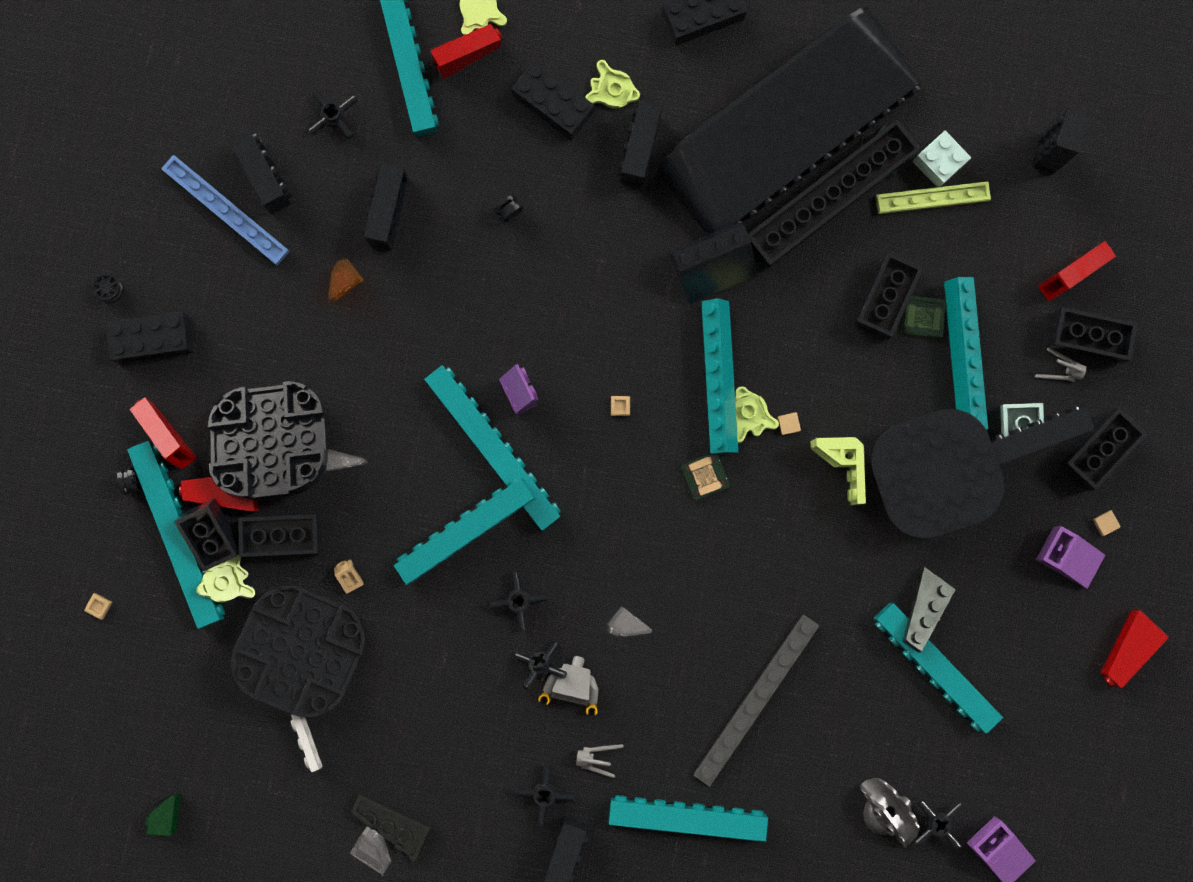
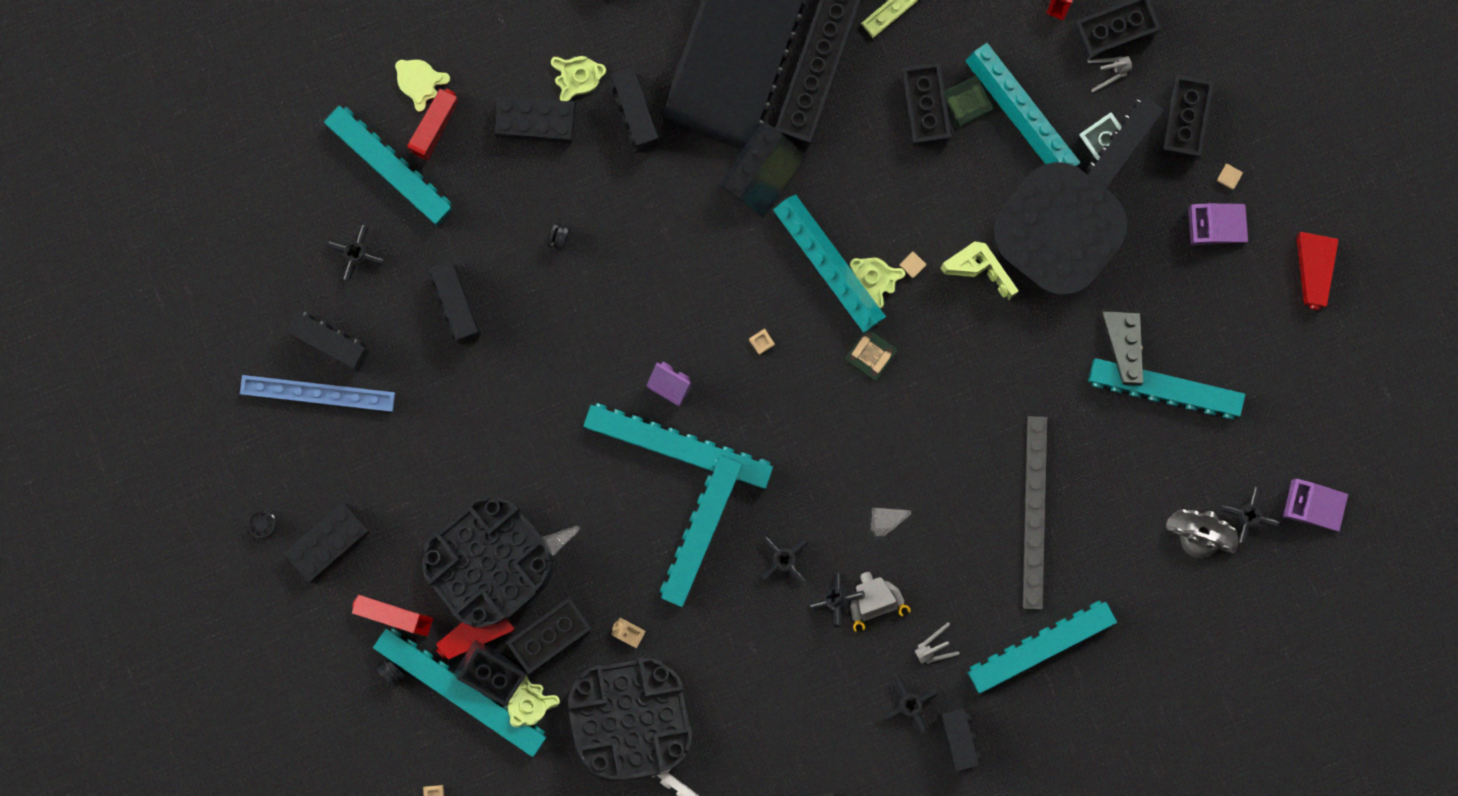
camera: 30 degrees left, 0 degrees up
(343, 279) = (458, 386): clear orange slope -> none

